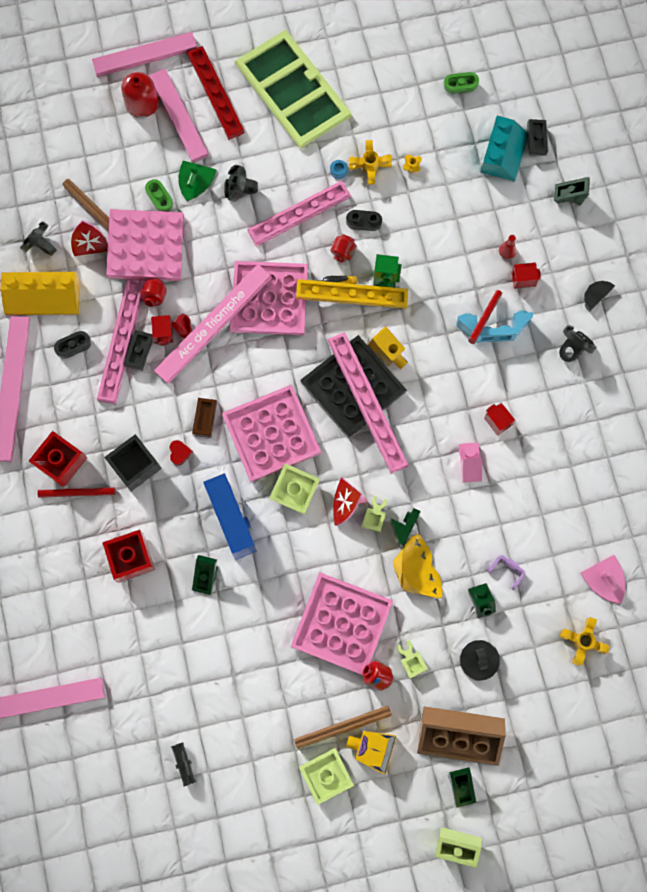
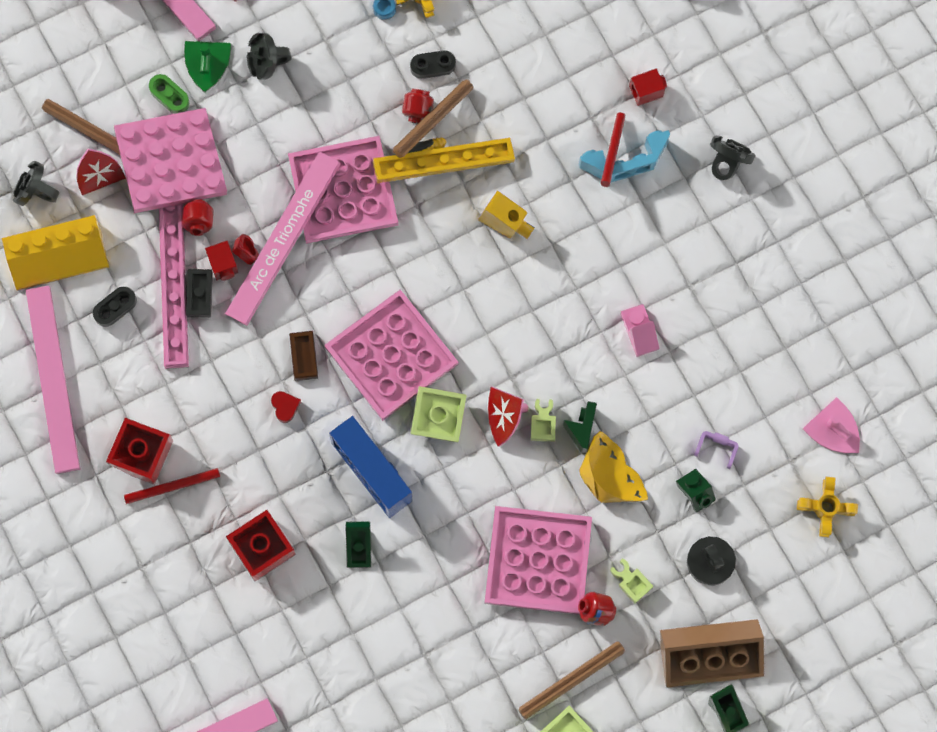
camera: 20 degrees left, 0 degrees up
(133, 462) = (233, 432): pearl dark grey piece -> none
(298, 213) = (349, 74): bright pink tile -> none
(334, 395) = (475, 272): pearl dark grey plate -> none
(351, 260) = (432, 118): none -> medium nougat axle
(368, 403) = (498, 288): bright pink tile -> none
(373, 749) = (614, 695): yellow torso -> none
(386, 271) = (479, 122): green brick -> none
(499, 418) = (660, 269): red brick -> none
(508, 248) = (618, 59): red cone -> none
(596, 293) = (738, 87): pearl dark grey tile -> none

